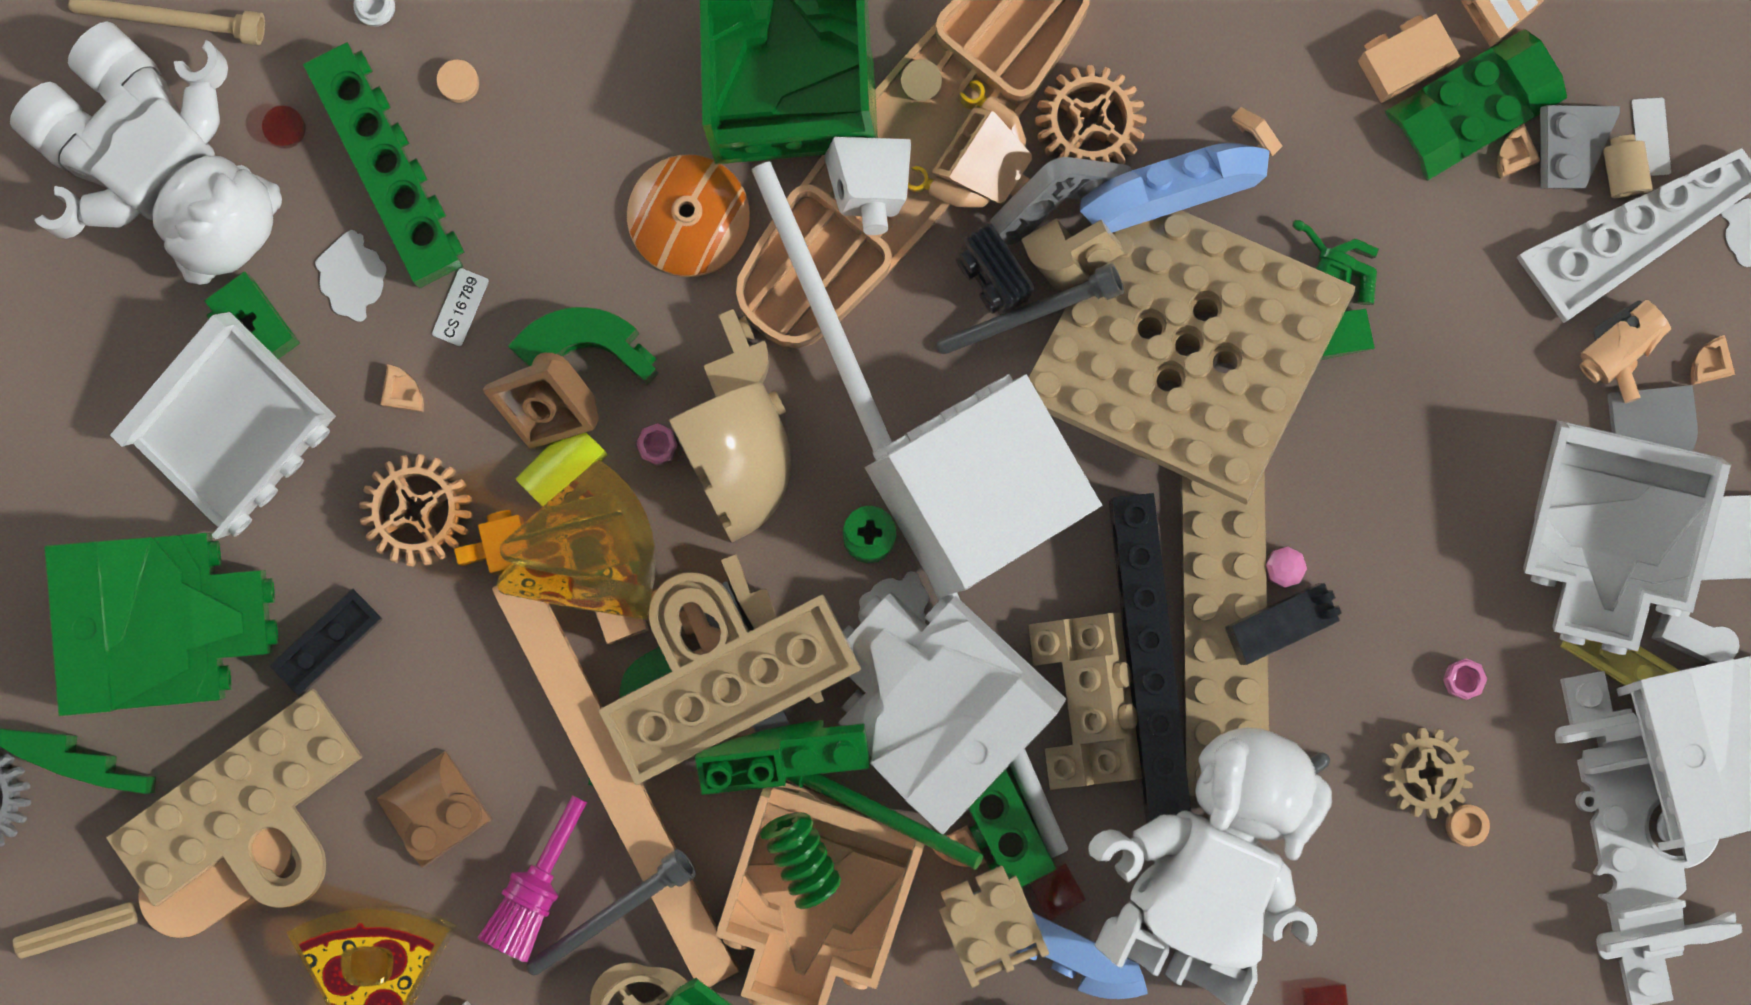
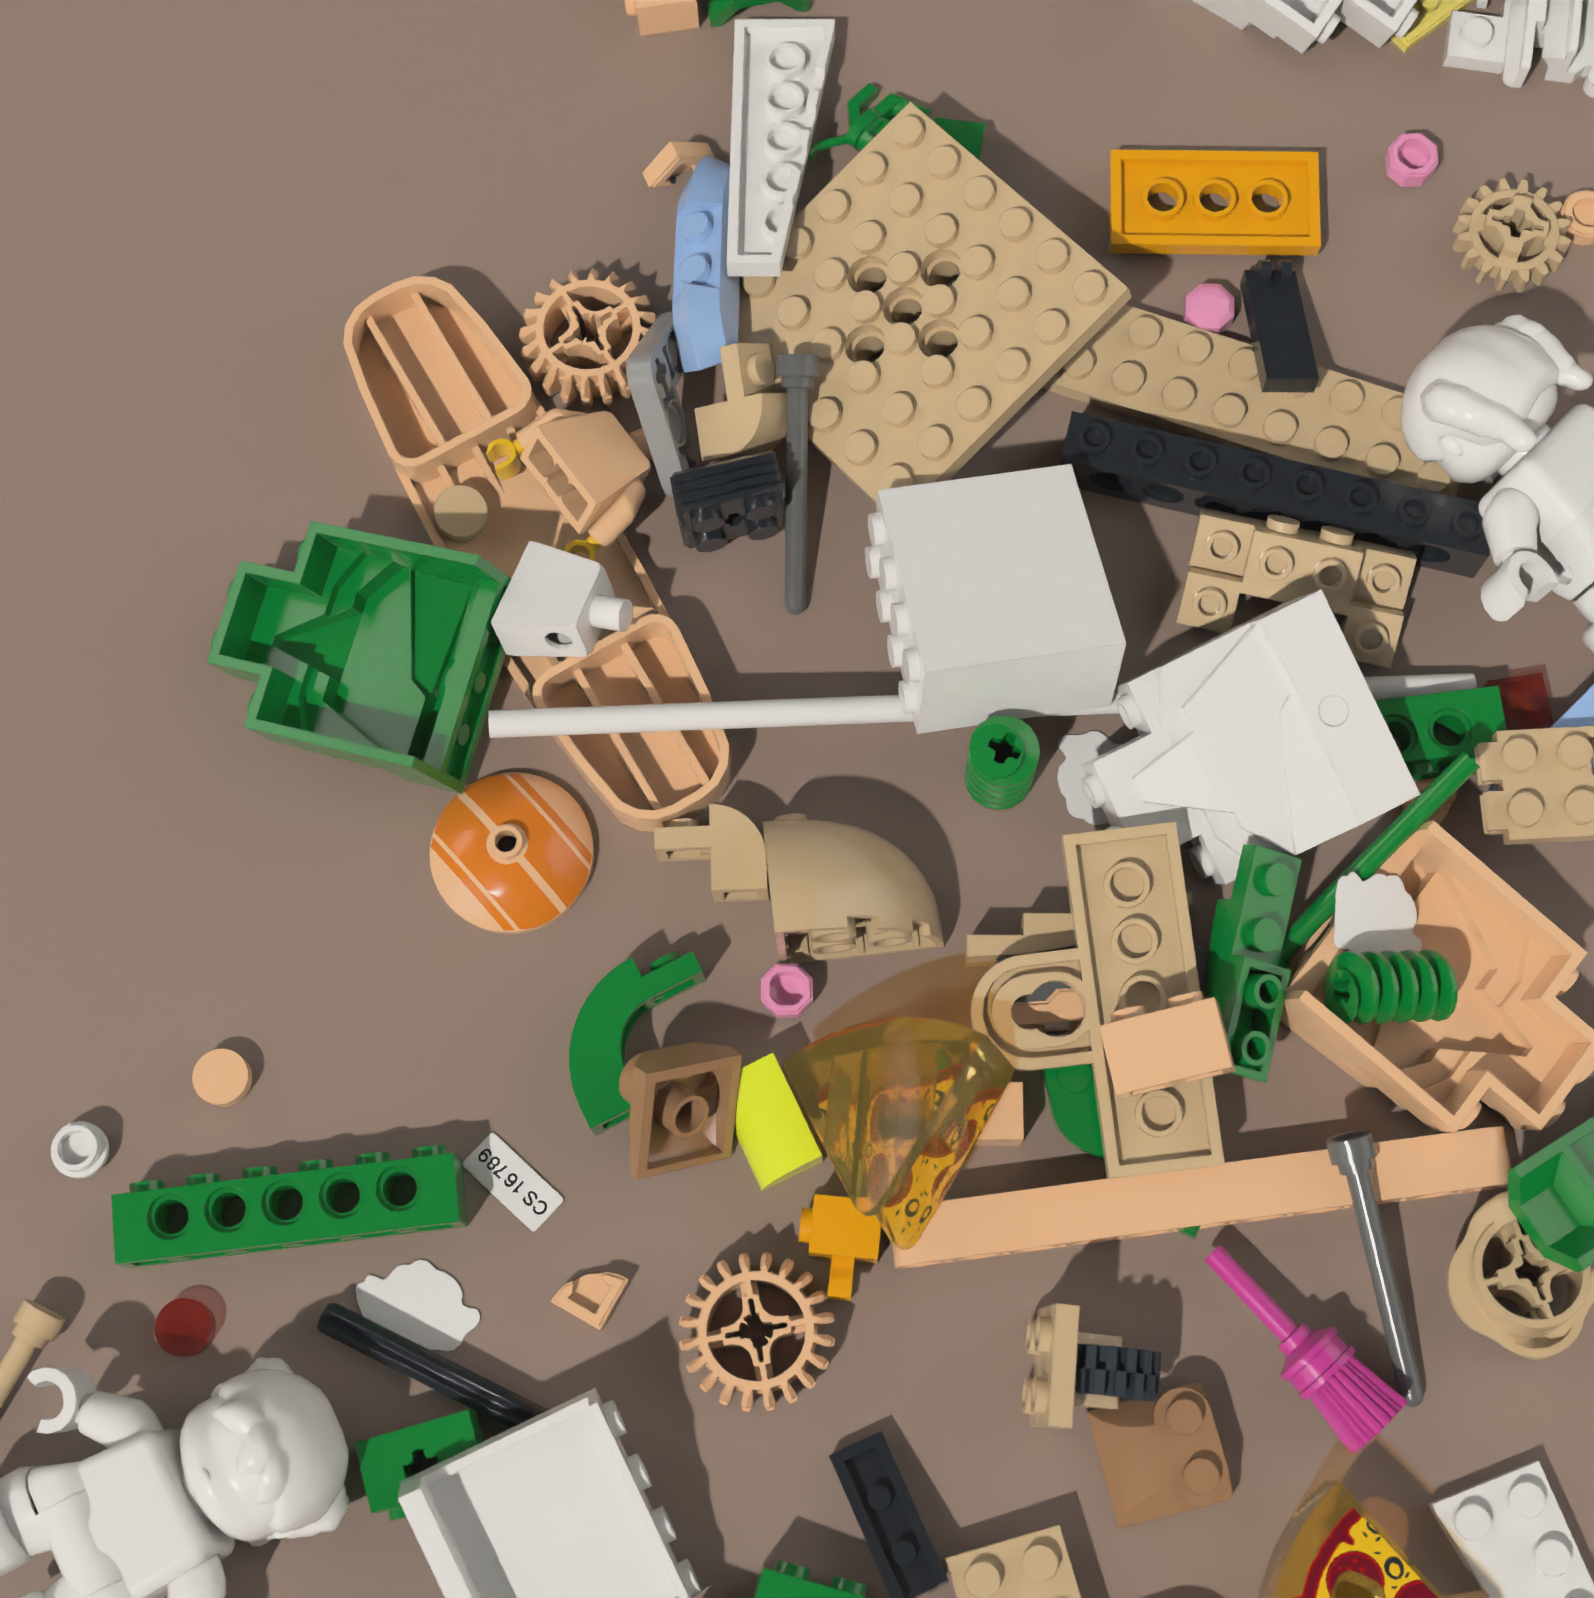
camera: 60 degrees left, 10 degrees down
(314, 301) = (426, 1366): none -> black axle
(465, 737) = (1081, 1369): none -> tan plate
(693, 715) = (1166, 1045): none -> light nougat brick
(850, 834) = (1374, 915): none -> white sticker
(1319, 187) = (774, 112): none -> white wing
(1401, 547) = (1231, 174): none -> light orange plate

